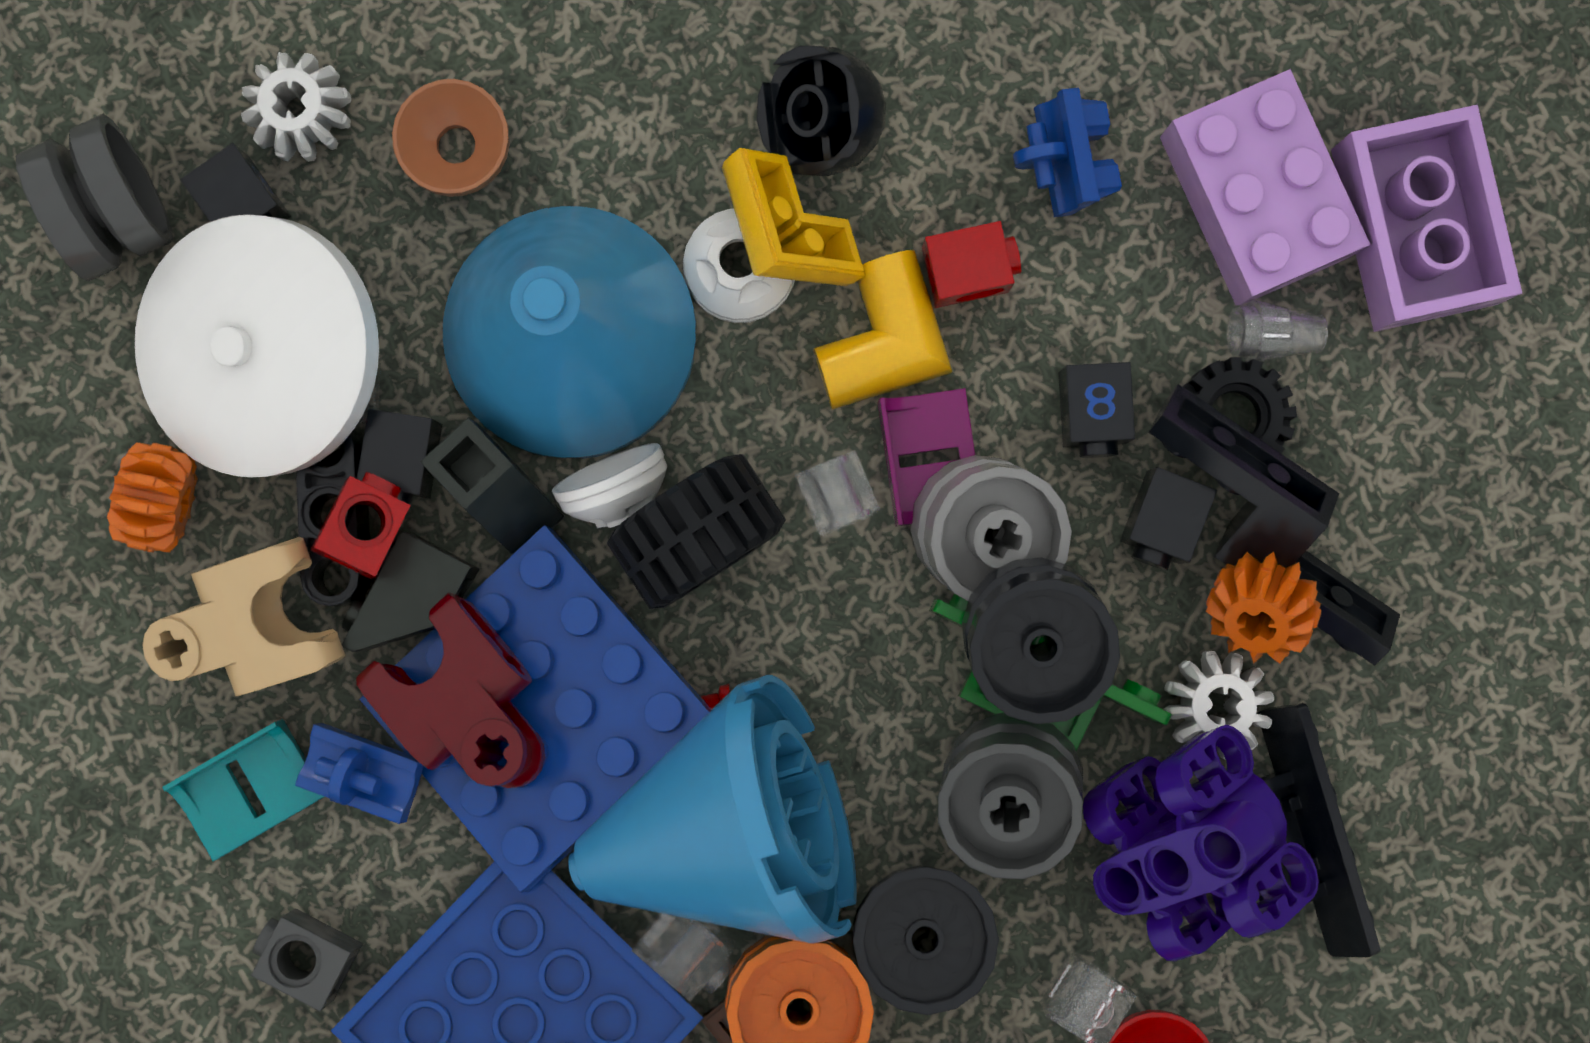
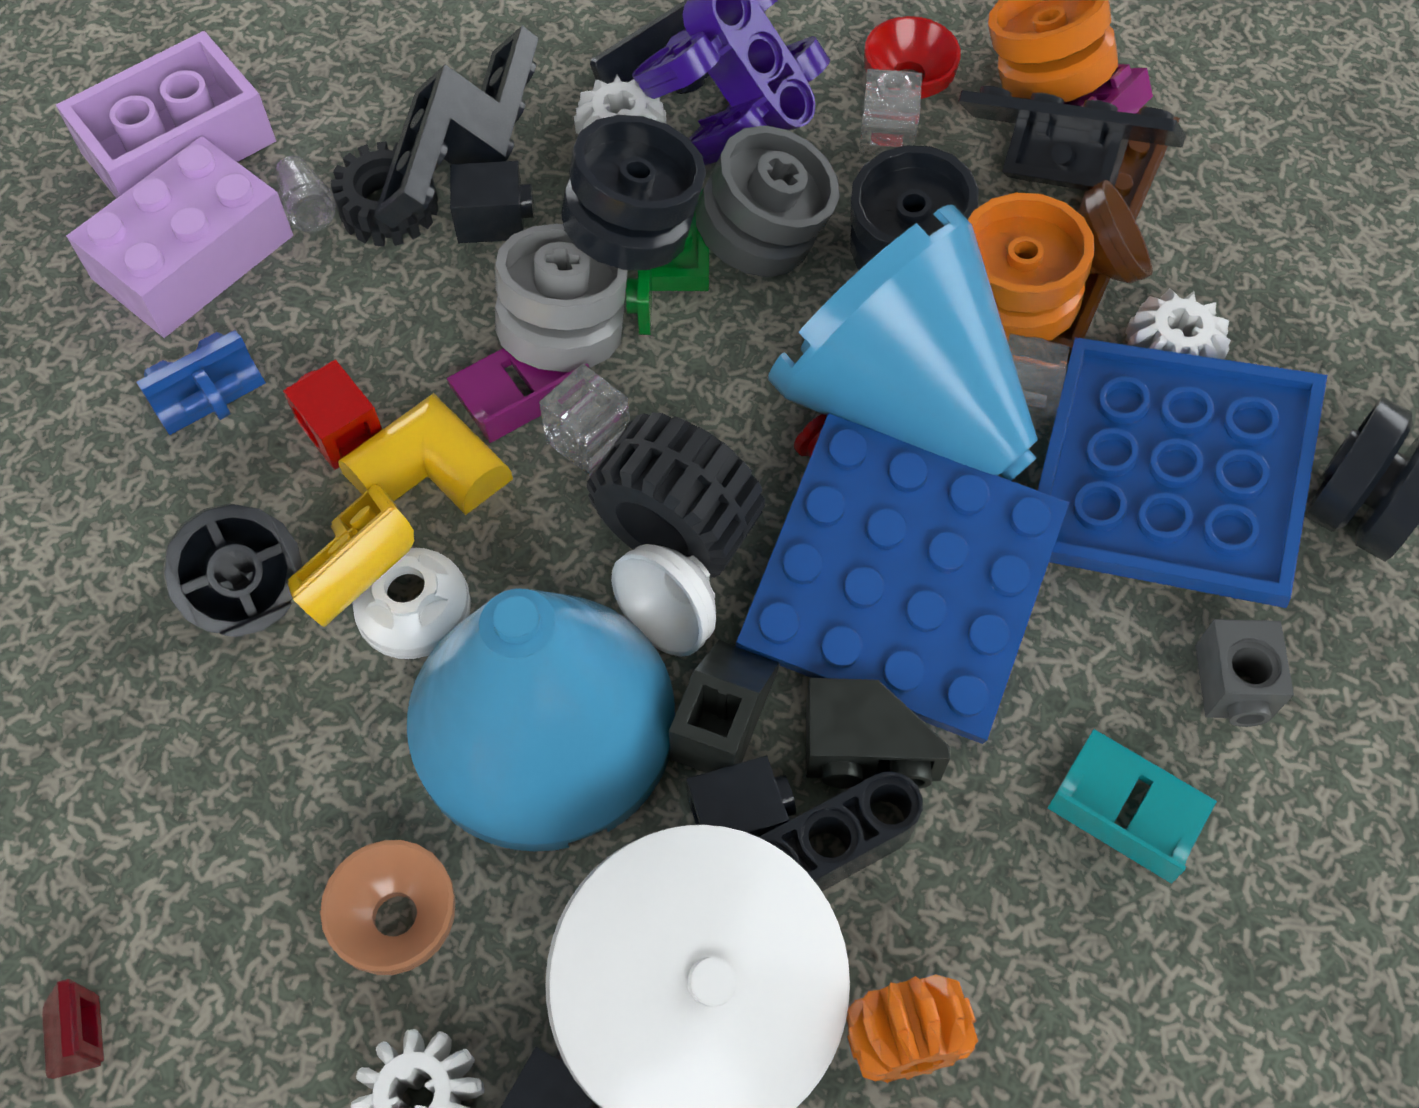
camera: 115 degrees left, 25 degrees down
(242, 625) = (989, 865): tan piece -> none
(340, 546) = (828, 803): red brick -> none
(360, 773) = (1054, 692): blue hips -> none
(465, 703) = (942, 611): dark red piece -> none
(1096, 407) = (420, 279): black brick -> none
(1263, 607) = (529, 100): orange gear -> none

